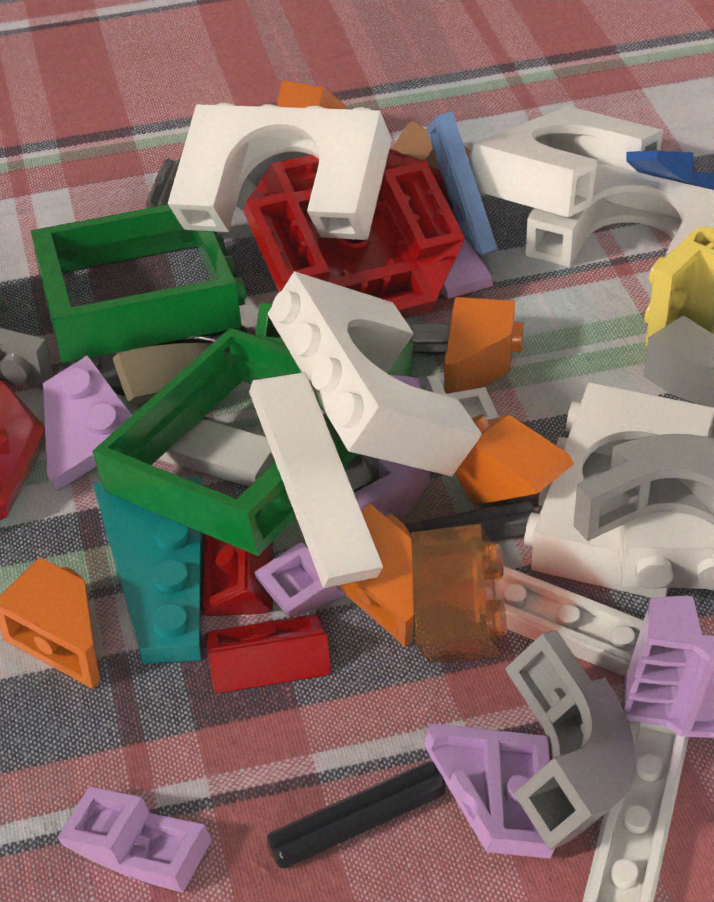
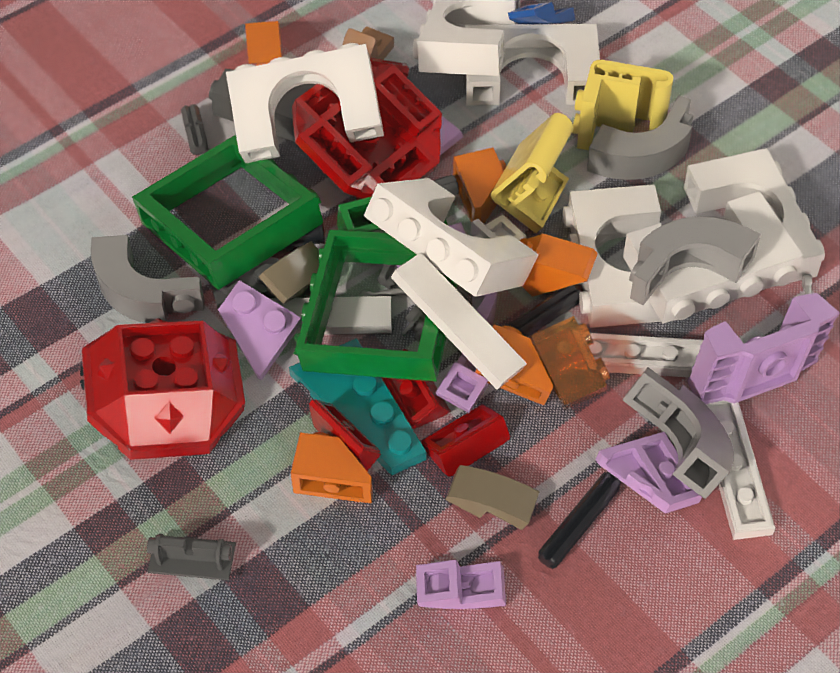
camera: 25 degrees left, 10 degrees up
(104, 584) = (331, 421): none -> red slope
(253, 732) = (490, 492): none -> dark tan slope
(461, 183) = (414, 67): medium blue tile -> none
(535, 351) = (530, 180): none -> light yellow piece

